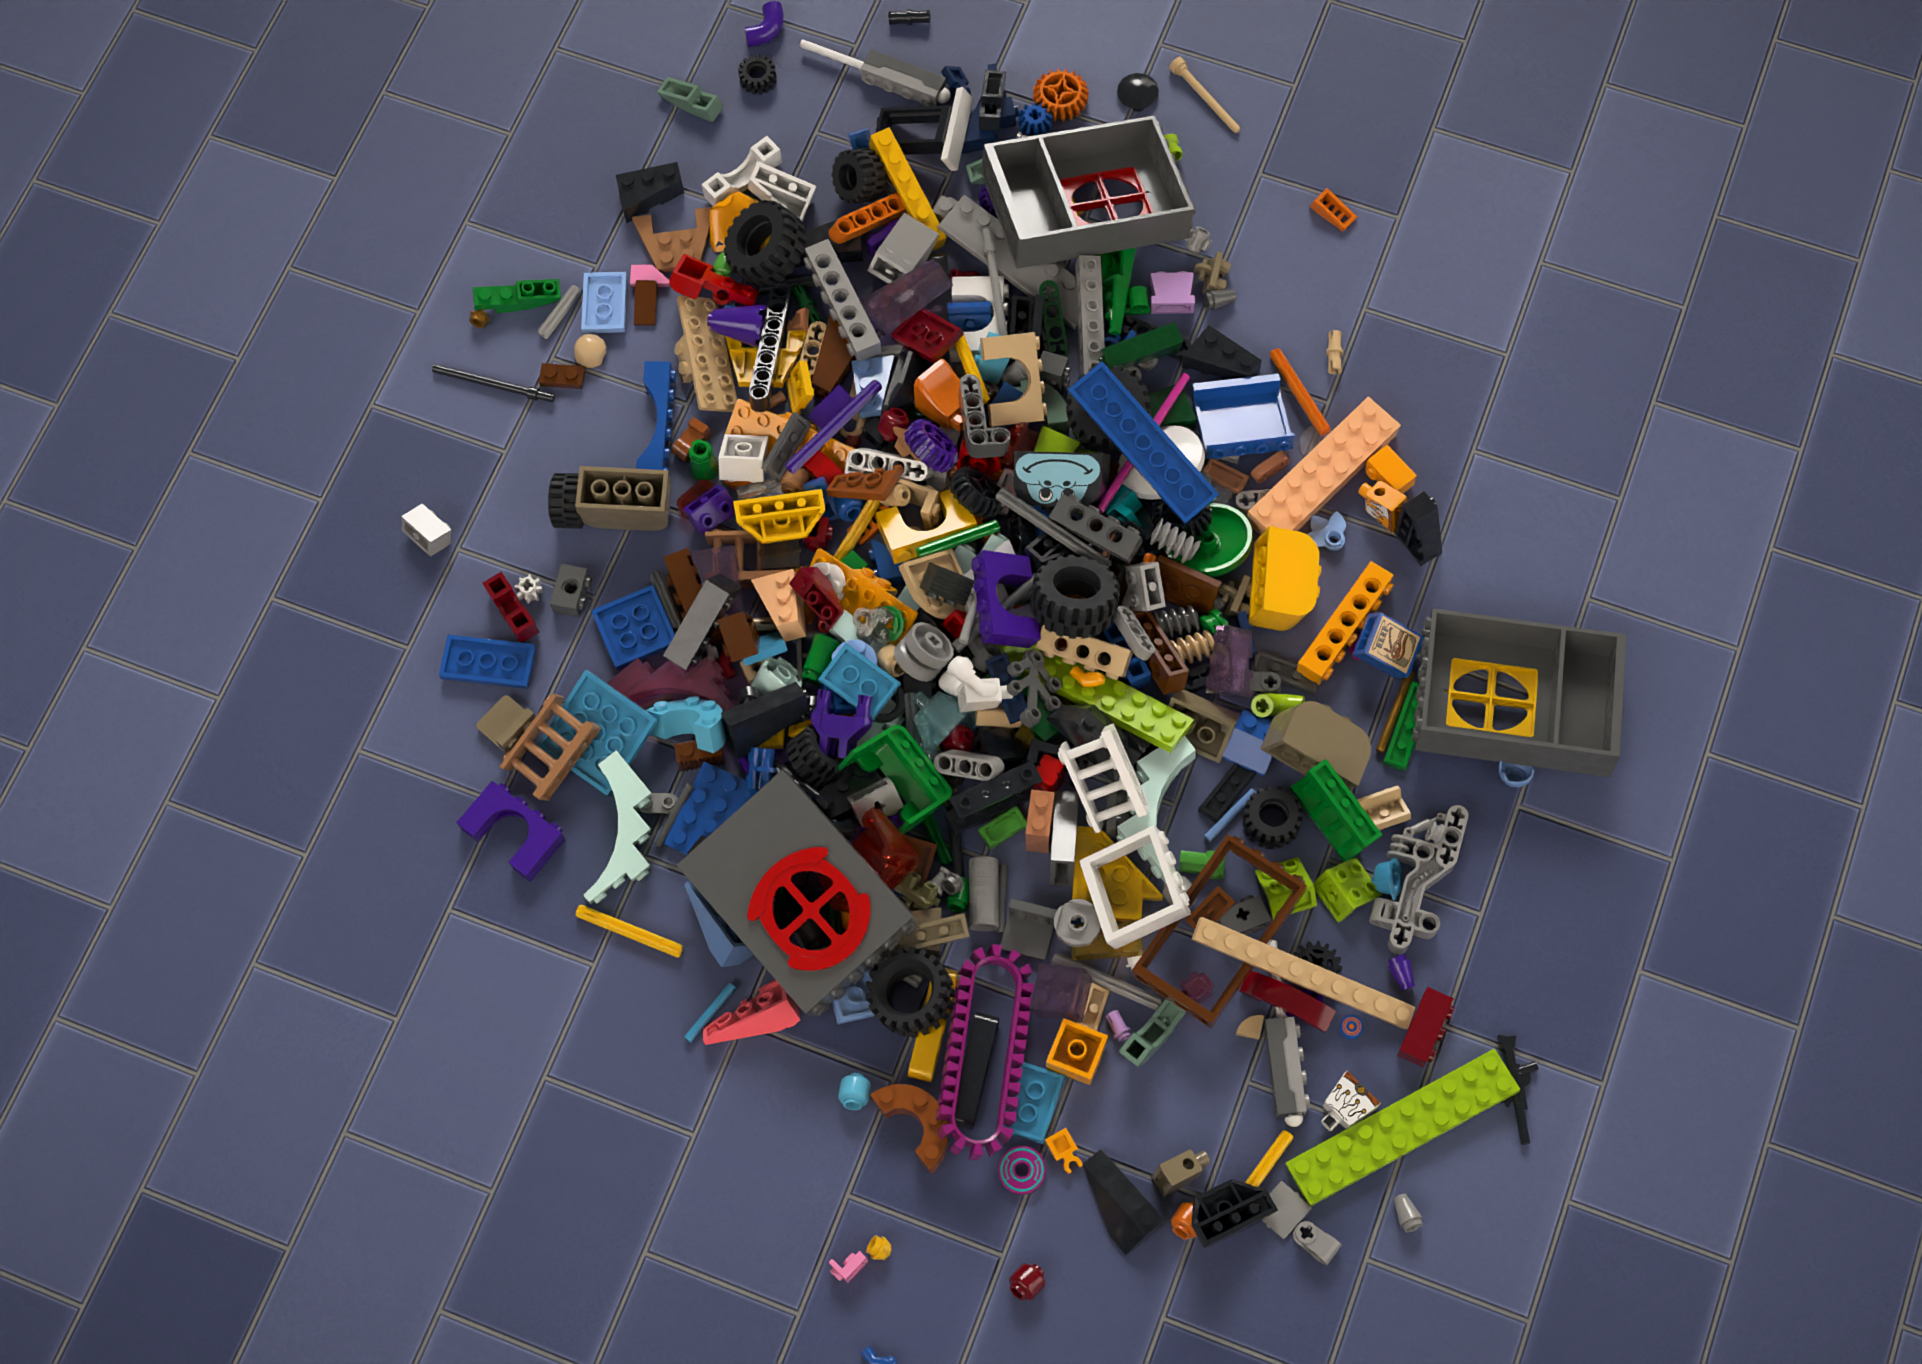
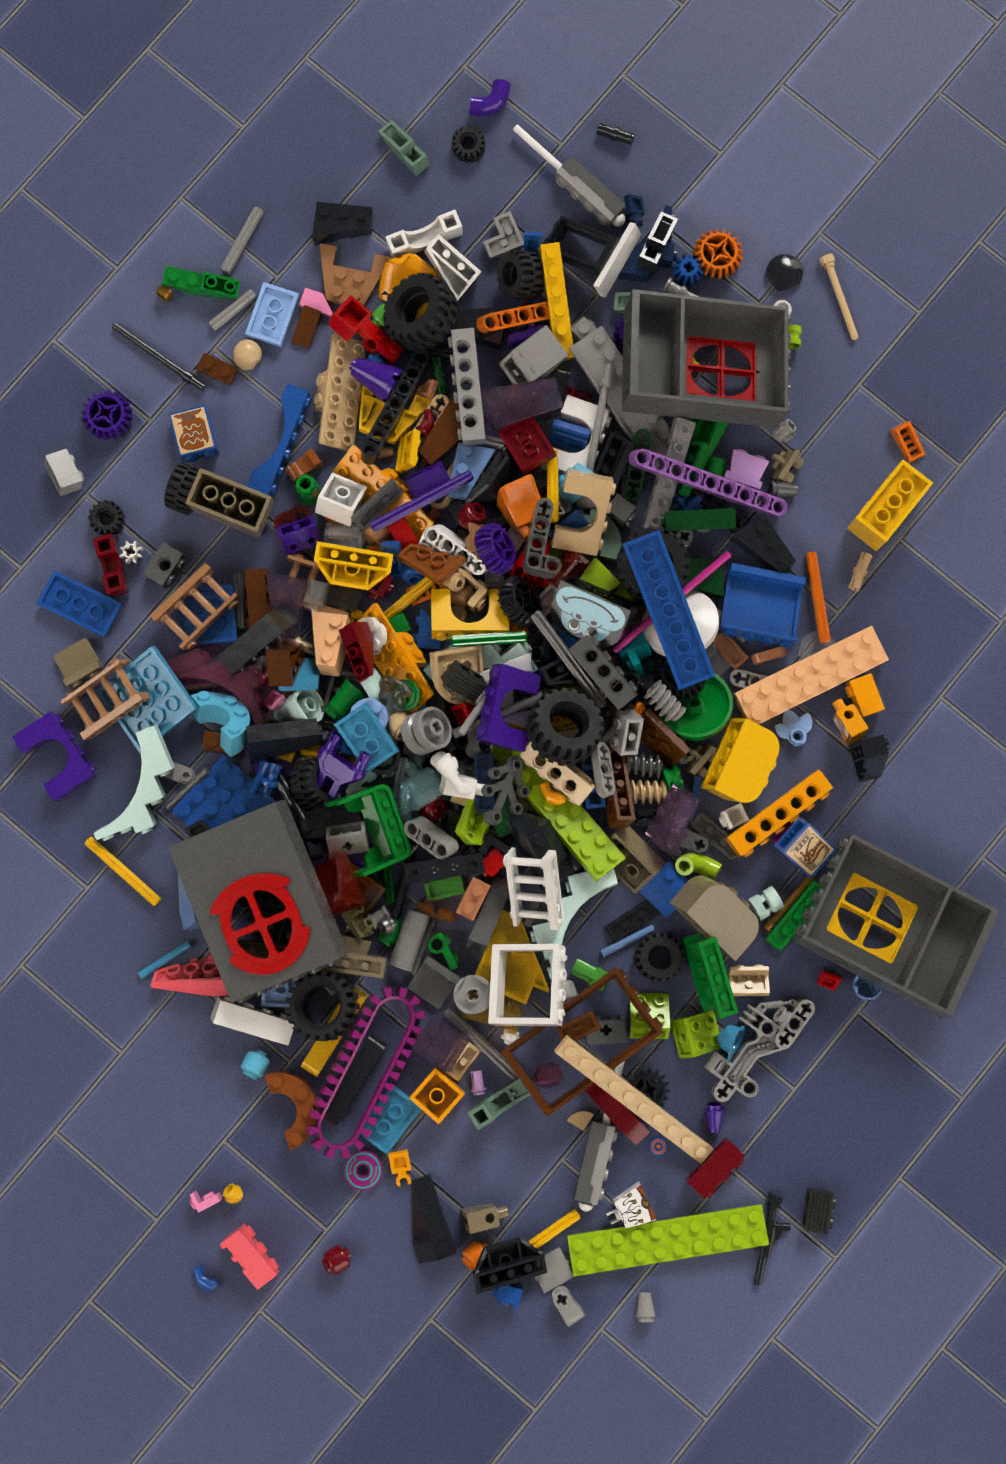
camera: 10 degrees right, 15 degrees up
(452, 468) = (100, 418): none -> dark purple gear
(483, 553) = (102, 507): none -> black tyre
(546, 241) = (242, 240): none -> light grey axle
(558, 445) = (193, 433): none -> brick
(607, 600) = (176, 601): none -> medium nougat fence
(746, 680) = (274, 700): none -> bright pink tile
(751, 560) = (316, 595): none -> clear brick
(812, 352) = (428, 423): none -> dark red arm
(830, 145) = (508, 238): none -> light grey plate
(834, 1040) = (252, 1020): none -> white wedge
(911, 513) = (462, 596): none -> medium nougat head
(924, 1310) = (251, 1255): none -> coral wedge
(1011, 855) = (442, 914): none -> clear orange slope
(1012, 739) = (471, 825): none -> lime bracket
(1029, 891) = (451, 958): none -> green plate
(1128, 314) = (700, 479): none -> medium lavender beam
(1241, 1251) = (509, 1295): none -> blue brick
(1296, 644) = (733, 817): none -> white bracket
(1338, 272) = (889, 505): none -> yellow brick
(1371, 718) = (771, 899): none -> light aqua wheel
(1471, 780) = (829, 979): none -> red slope
(1561, 1034) = (818, 1210): none -> pearl dark grey brick

